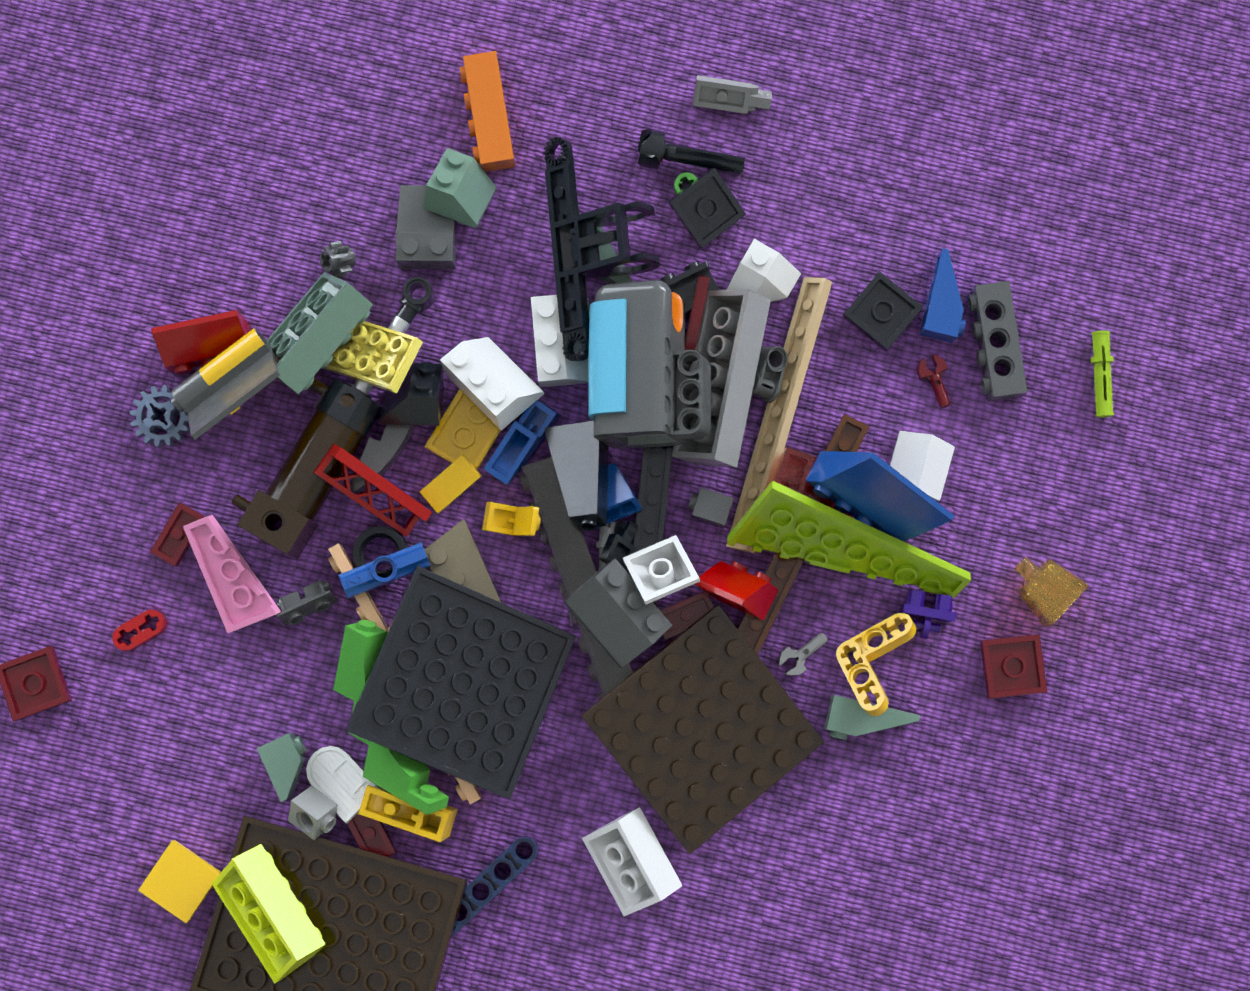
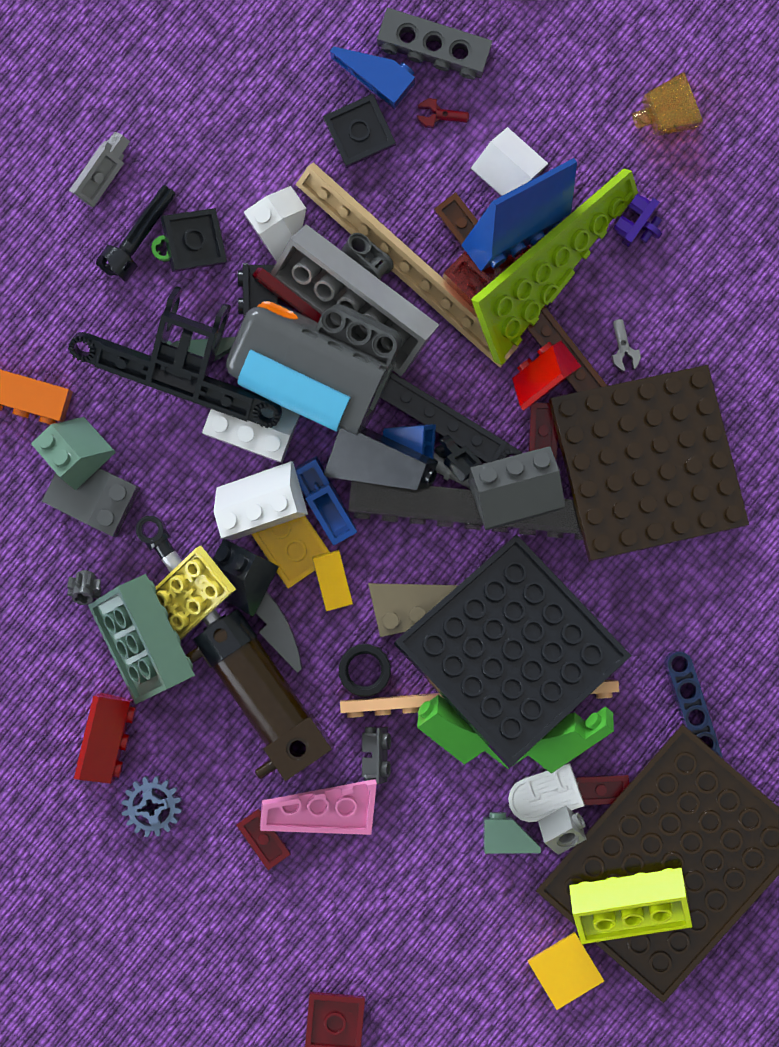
camera: 60 degrees left, 5 degrees up
(143, 635) = (338, 909): red beam -> none
(226, 382) = (155, 733): dark grey door -> none
(365, 577) = (383, 691): blue piece -> none
(383, 486) = (307, 640): red fence -> none
(389, 809) = (593, 761): yellow slope -> none
(511, 519) = (390, 541): yellow bracket -> none
(632, 862) = (732, 577): white slope -> none
(661, 569) = (499, 432): white slope -> none
(710, 507) = (460, 364): dark grey brick -> none
(849, 718) = (702, 324): sand green slope -> none
(865, 654) = (650, 293): yellow beam -> none
(1013, 666) = (720, 171): dark red plate -> none

